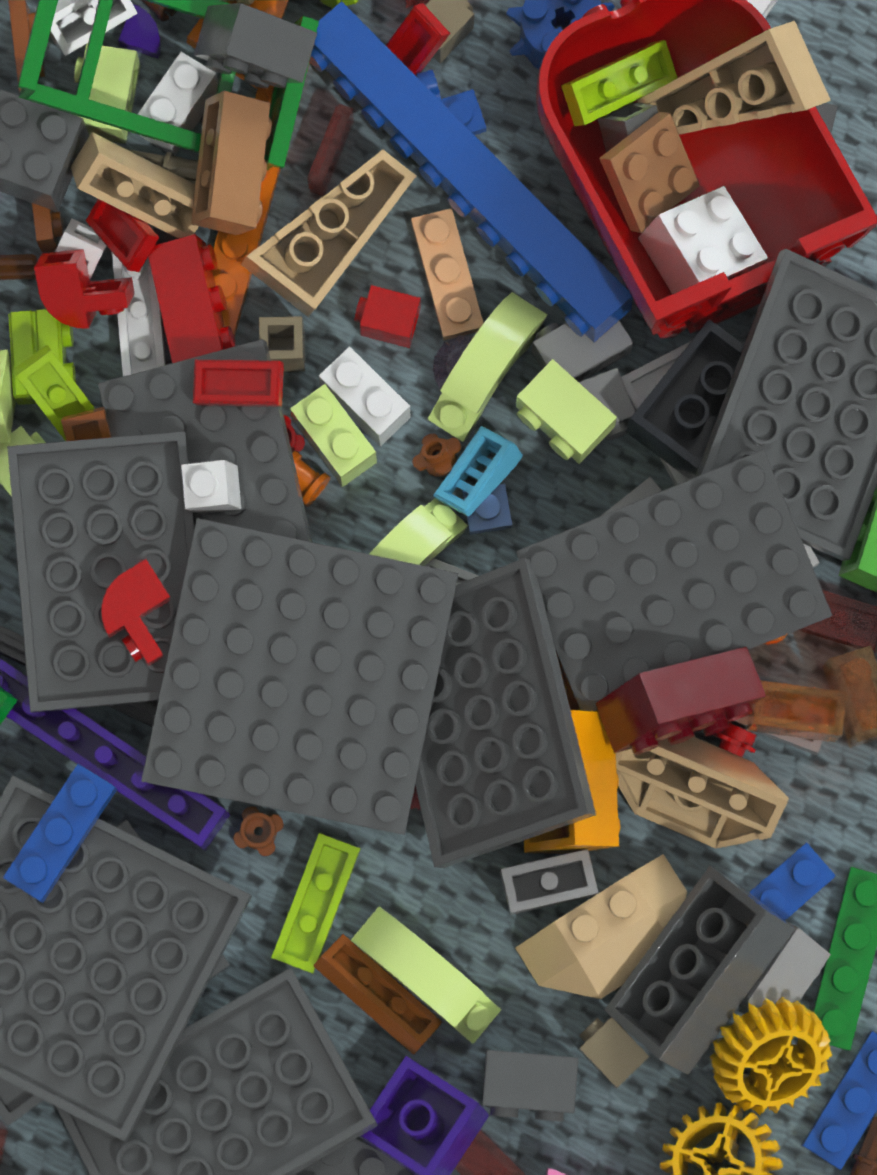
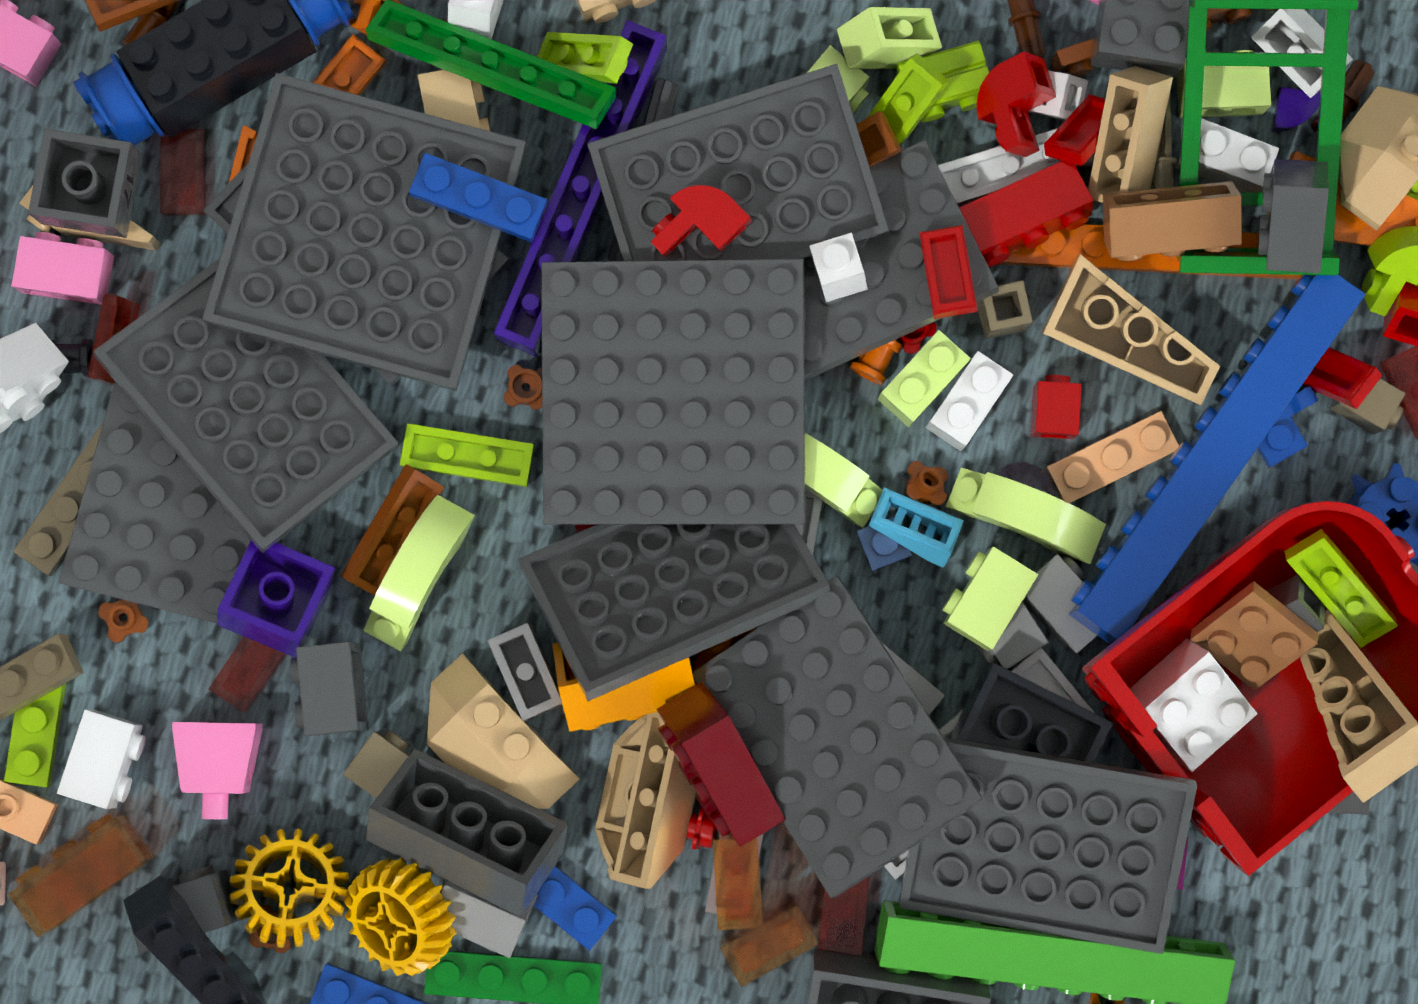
camera: 75 degrees right, 5 degrees up
(330, 149) = (1213, 317): clear red tile -> none

